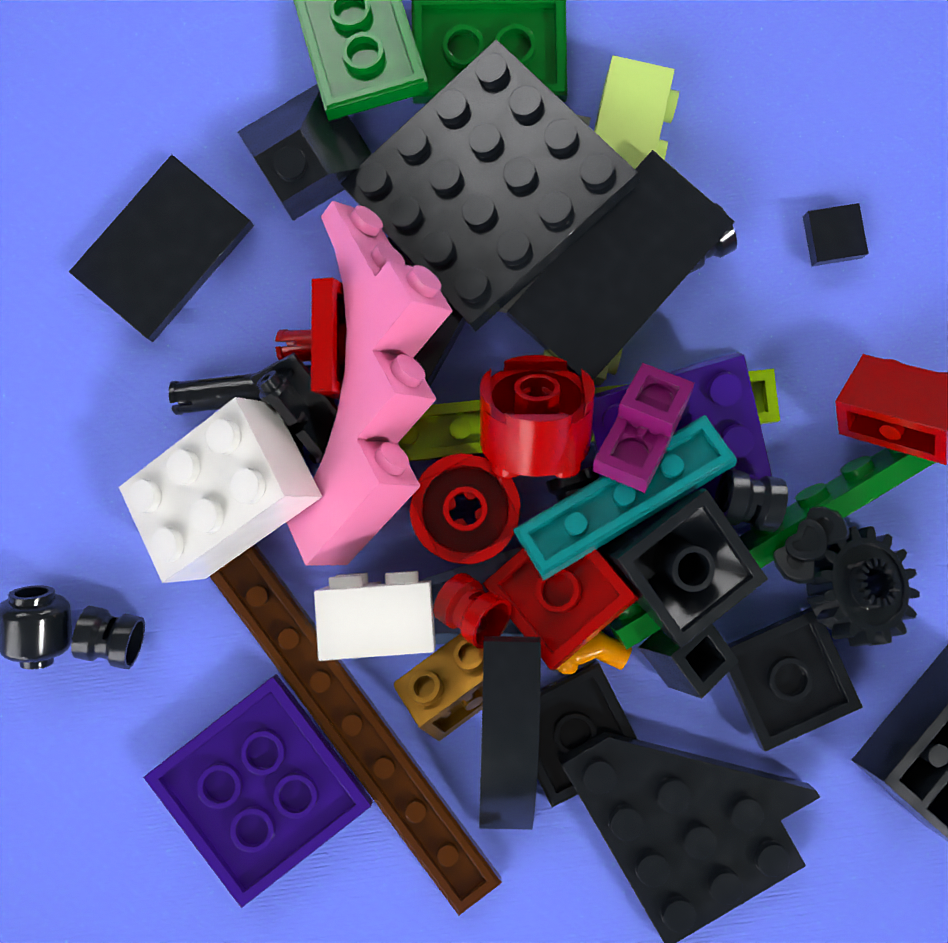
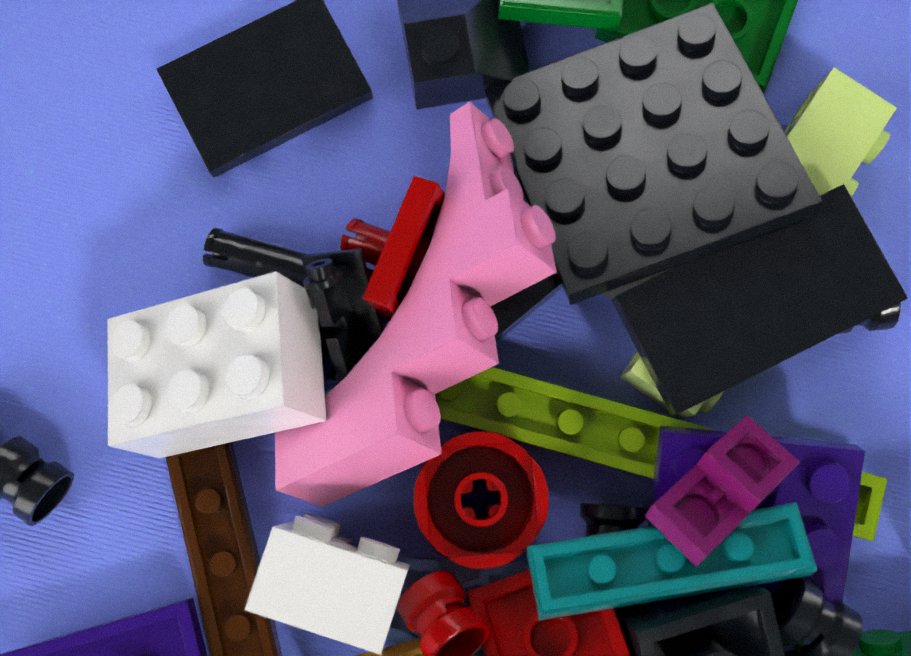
camera: 20 degrees right, 5 degrees down
(536, 417) = (603, 429): red brick -> none

